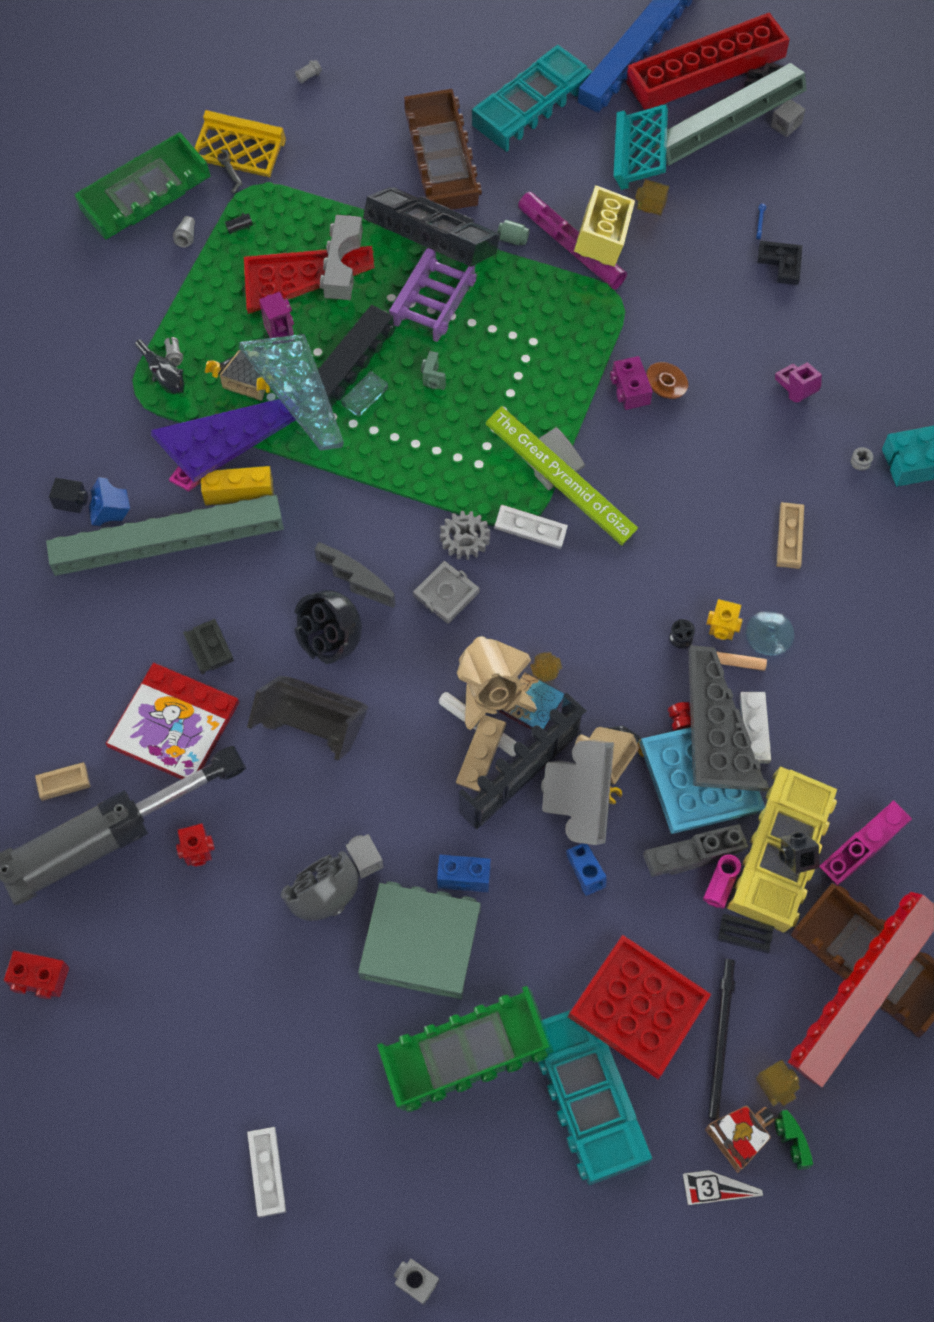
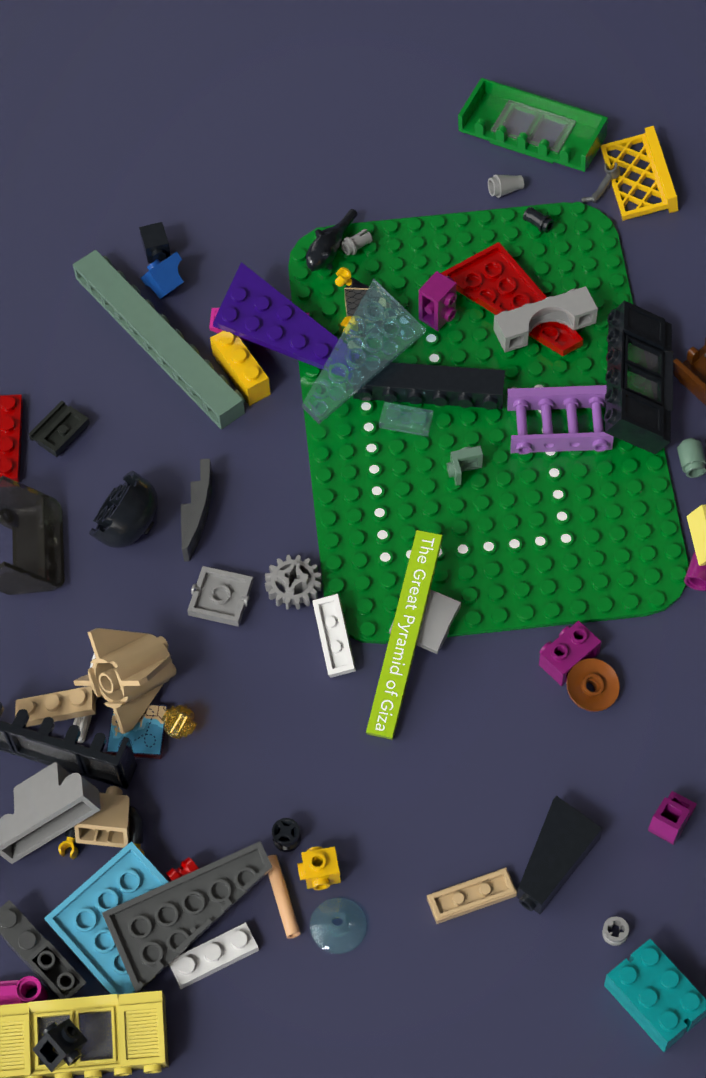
camera: 65 degrees right, 5 degrees down
(788, 466) = (559, 850): none -> black slope

